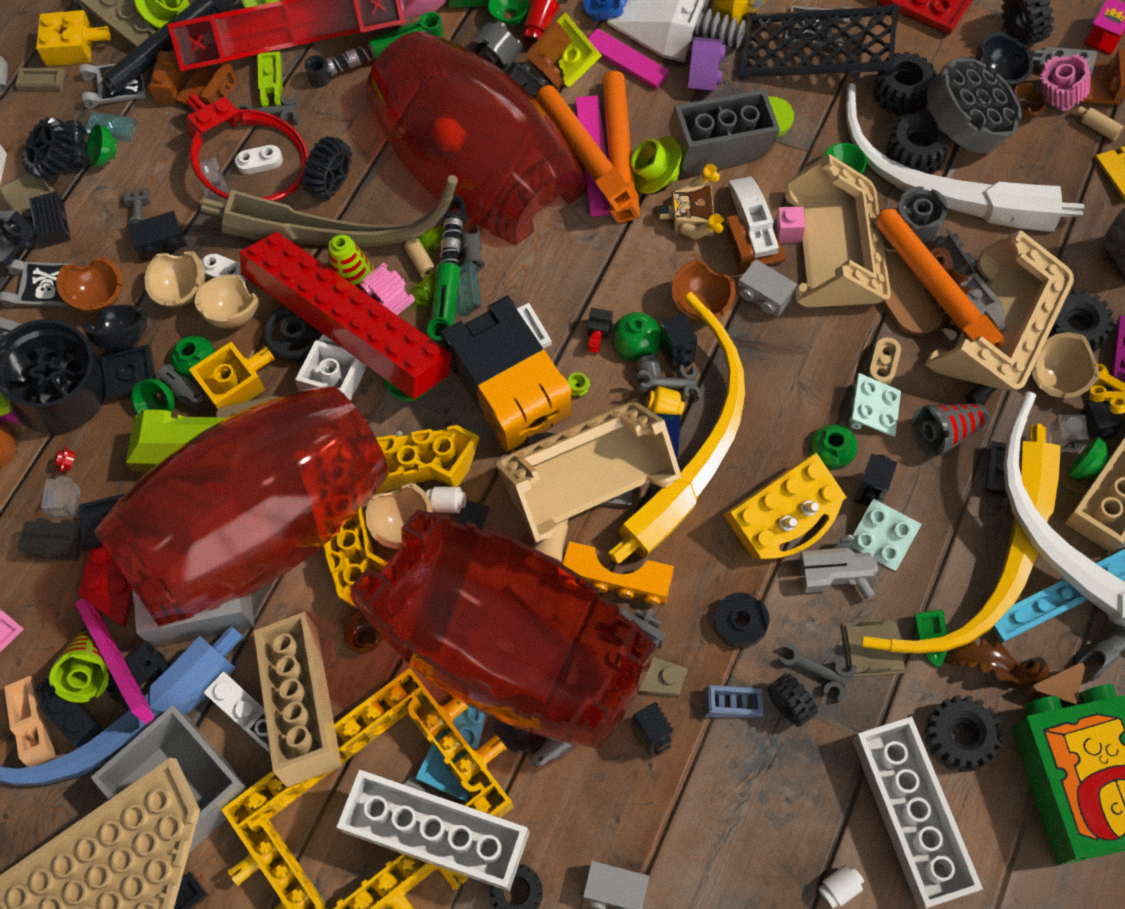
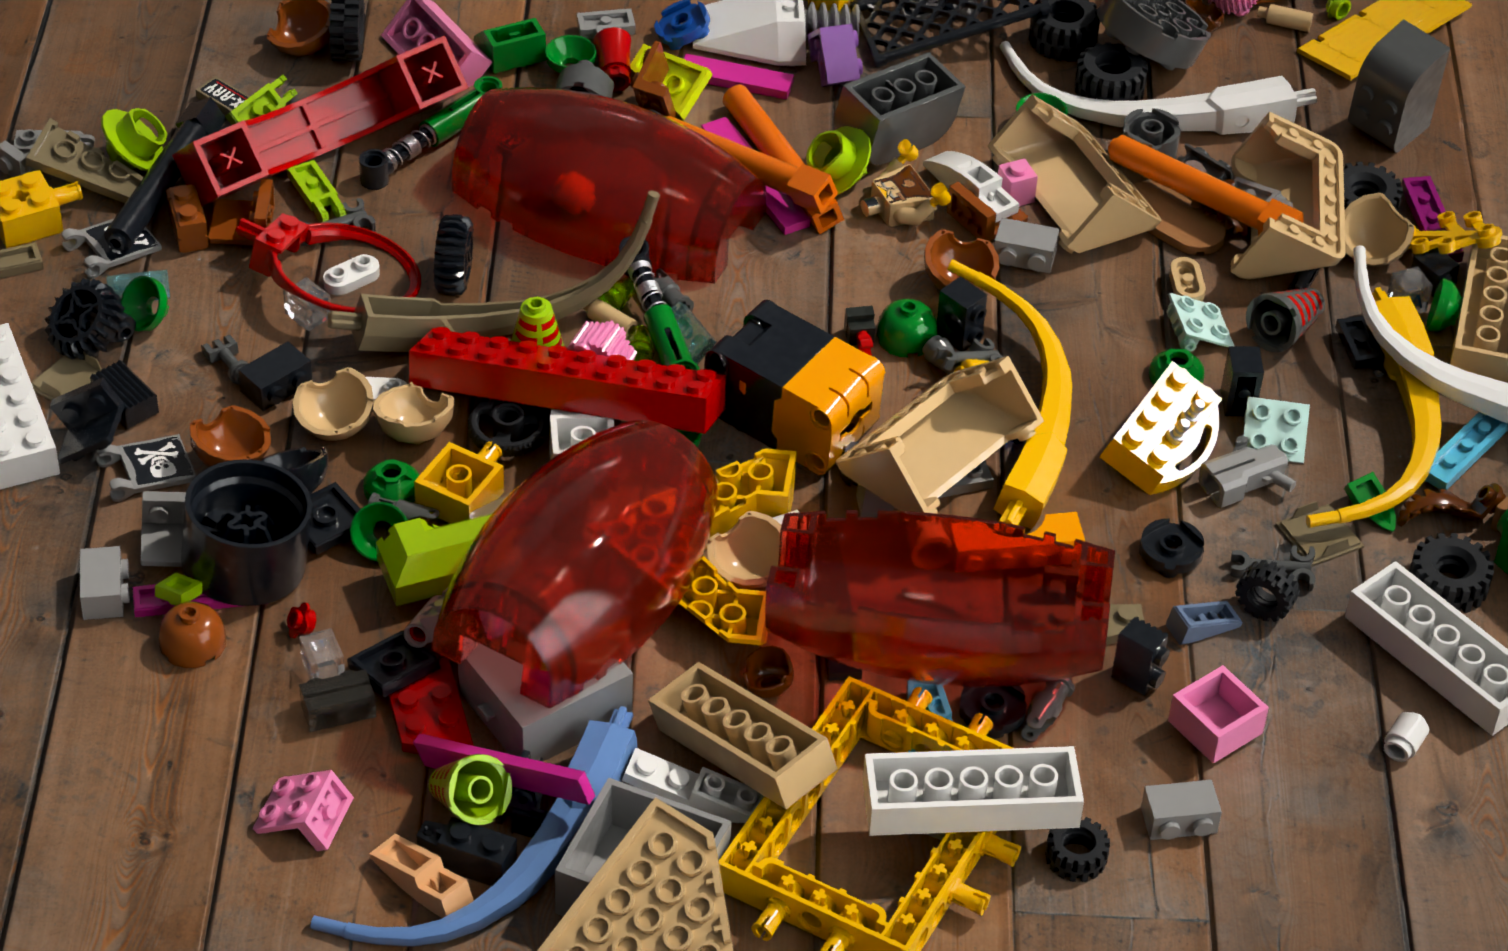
camera: 30 degrees left, 20 degrees down
(690, 808) = (1218, 714): none -> bright pink piece

